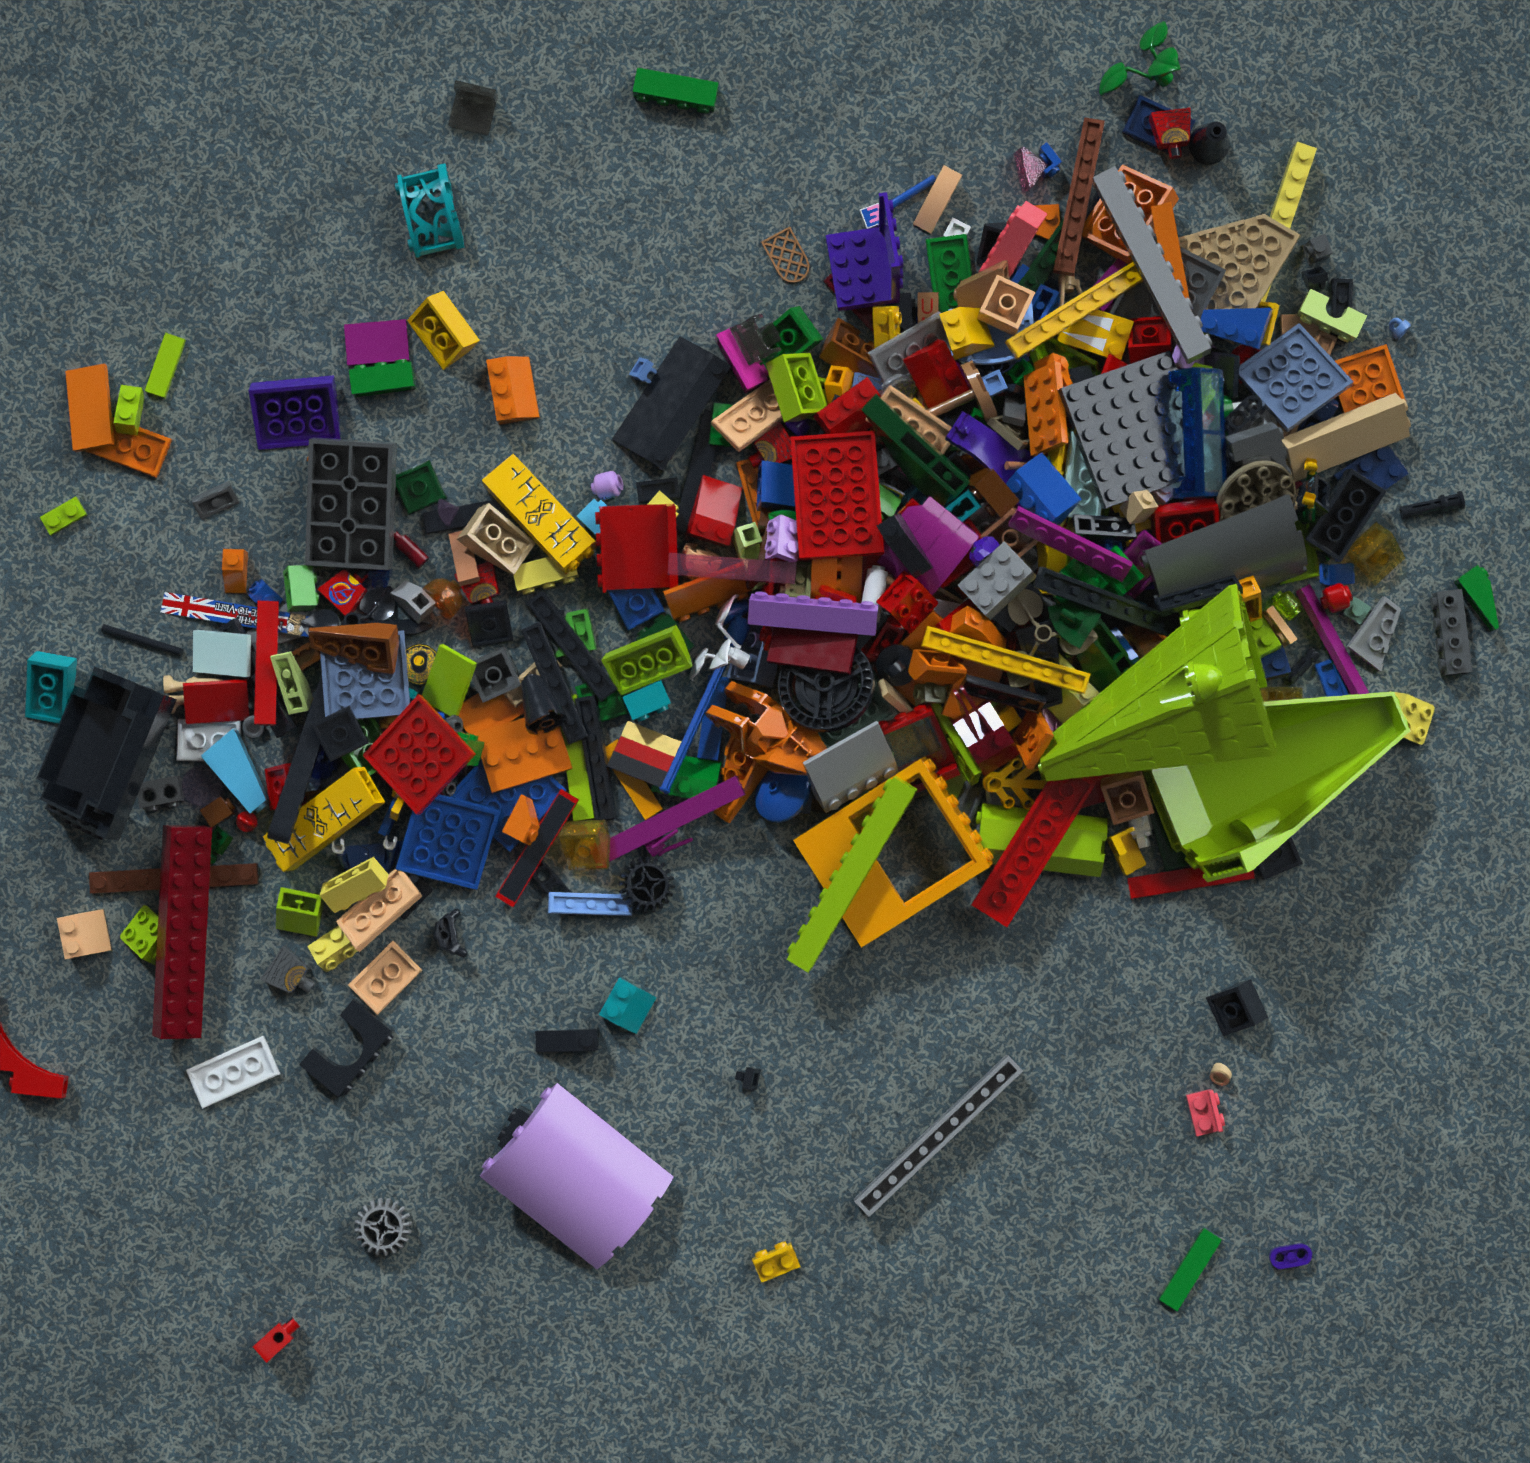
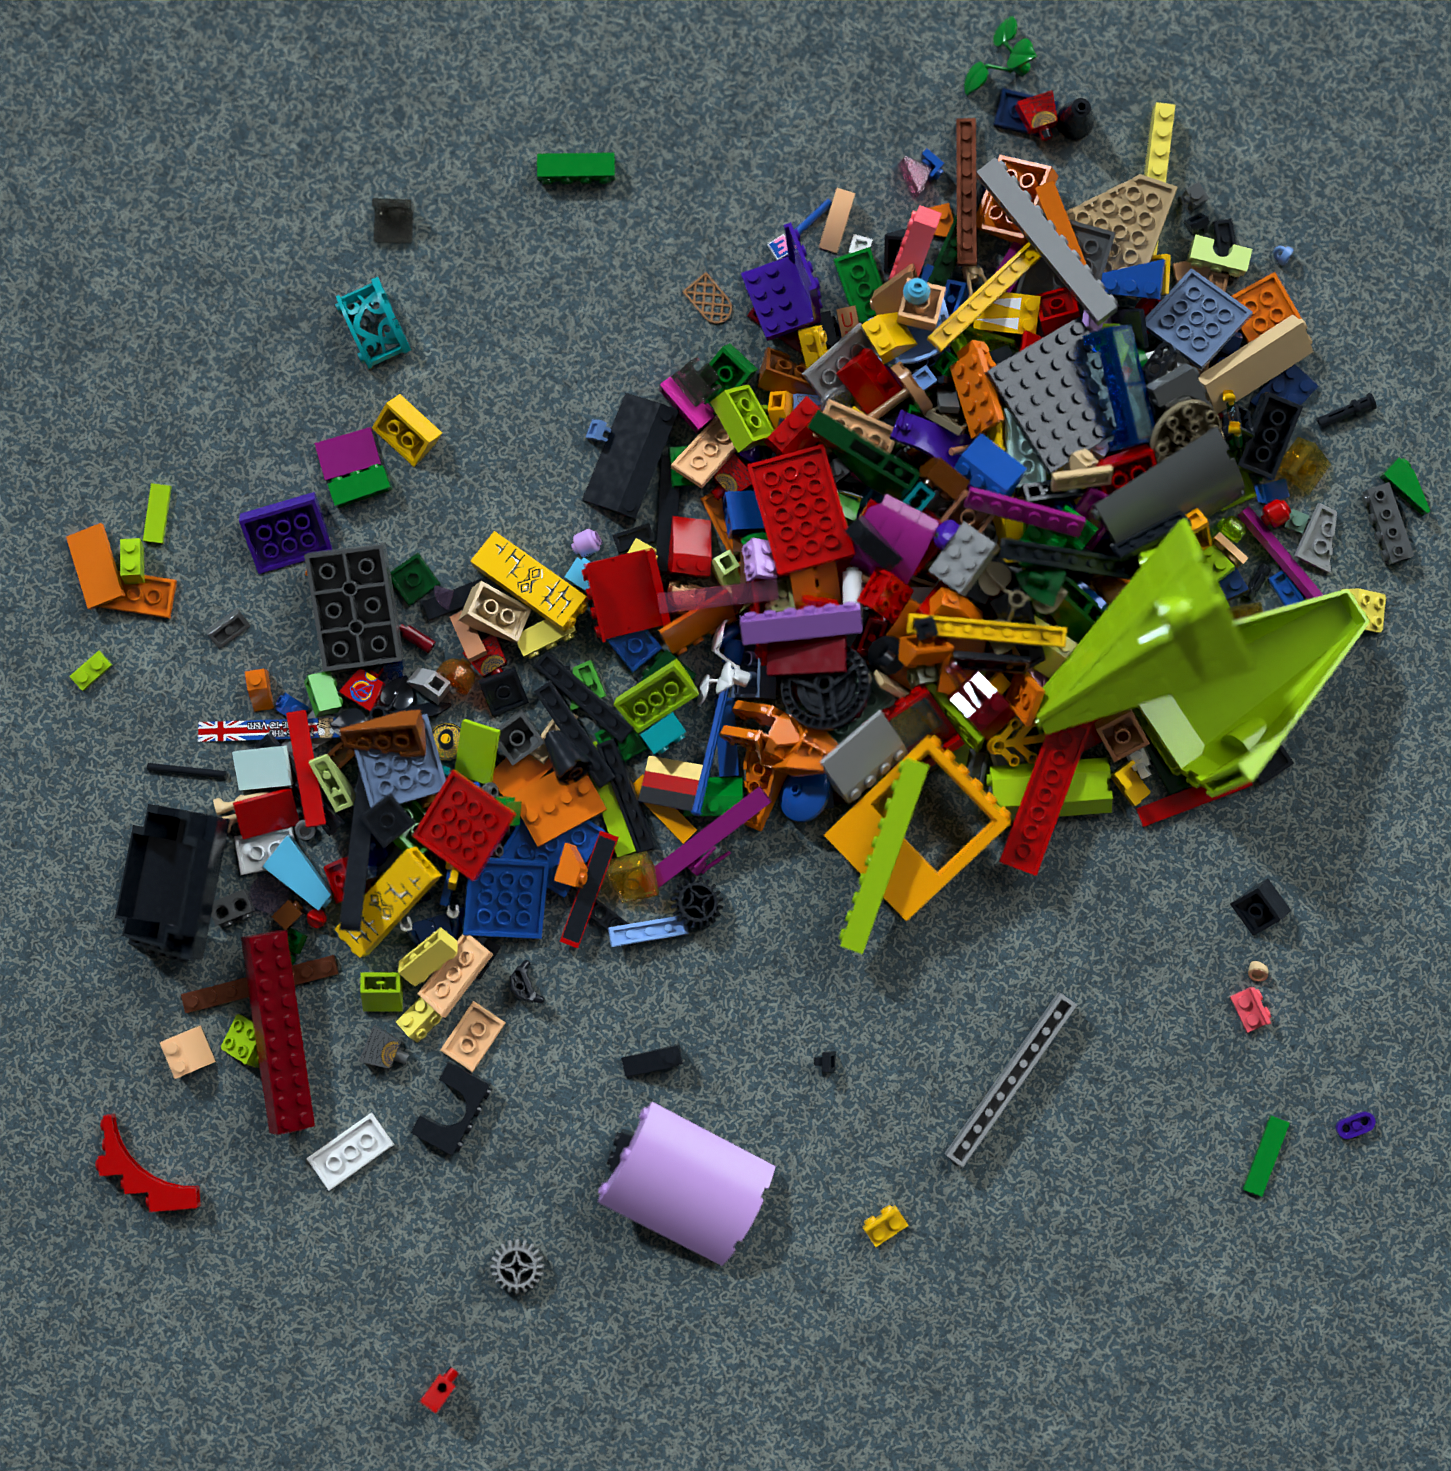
camera: 10 degrees left, 0 degrees up
(49, 685) = (109, 829): teal slope -> none
(512, 389) = (481, 471): orange slope -> none
(627, 1005) = (701, 1017): teal slope -> none
(941, 644) = (925, 628): none -> black tile
(1003, 290) = (916, 291): none -> medium azure cone
(1137, 520) = (1081, 478): none -> tan tile

